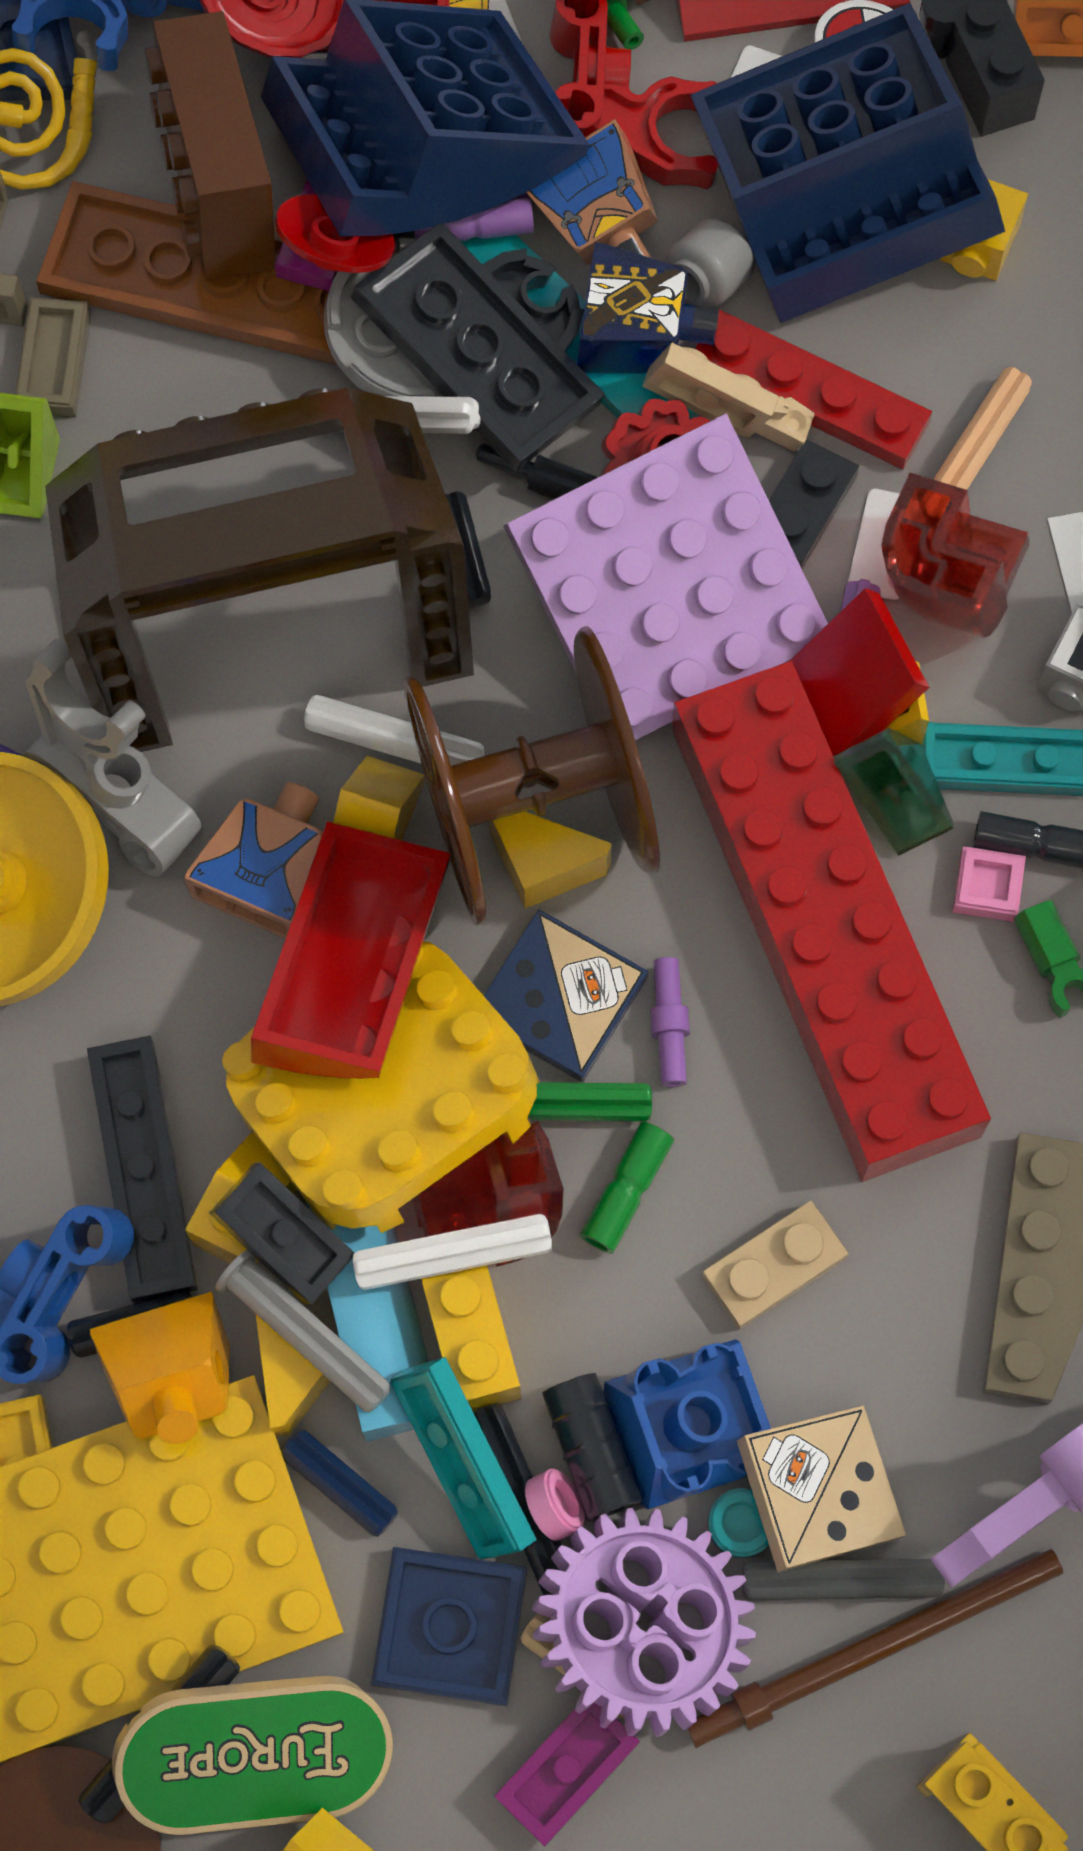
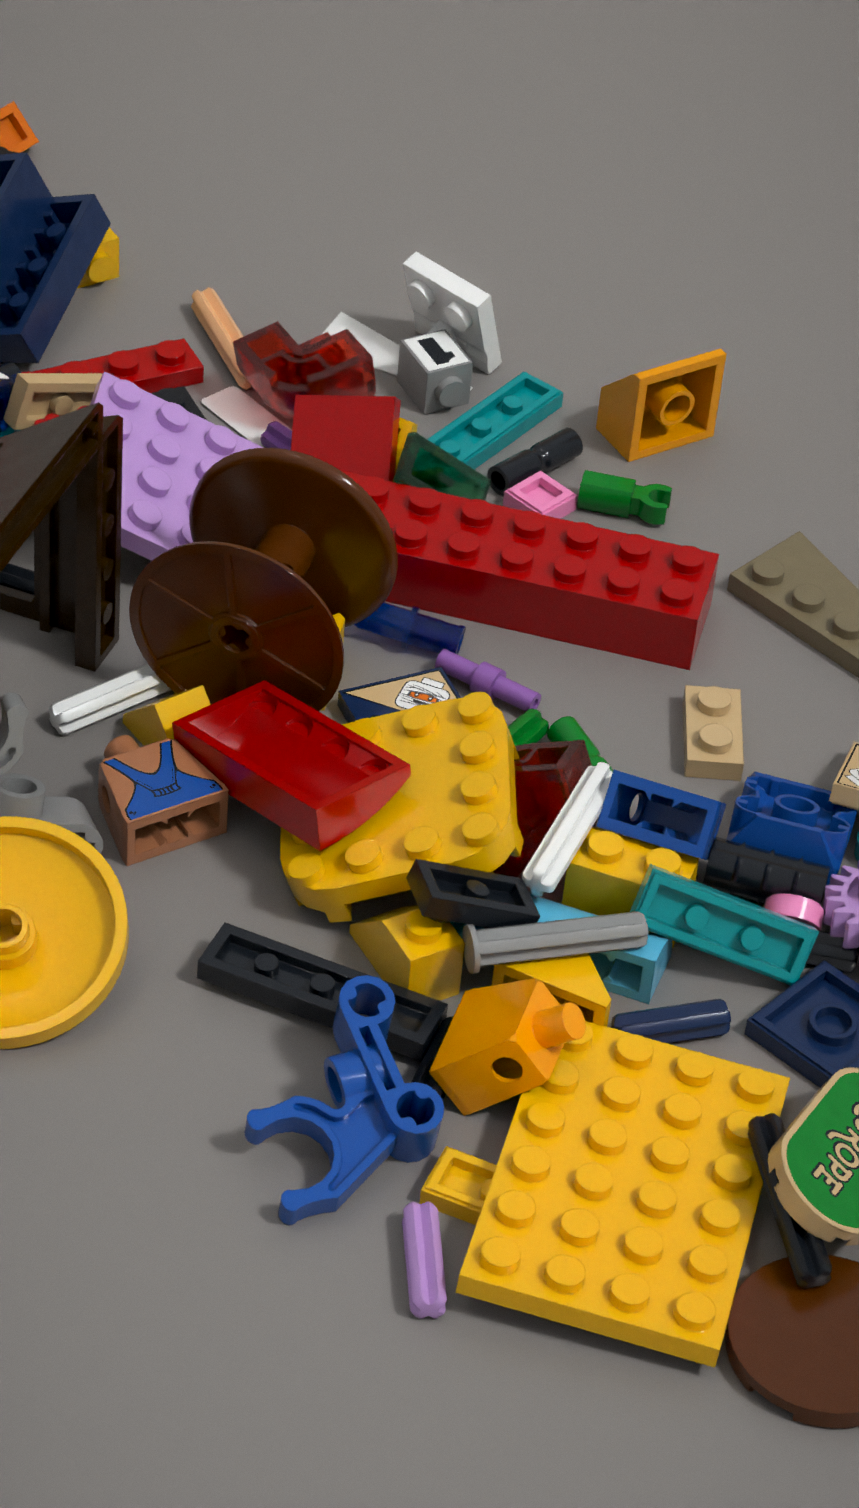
camera: 60 degrees left, 30 degrees down
(556, 1318) = (663, 815): none -> blue torso
(683, 910) = (414, 629): none -> clear blue axle

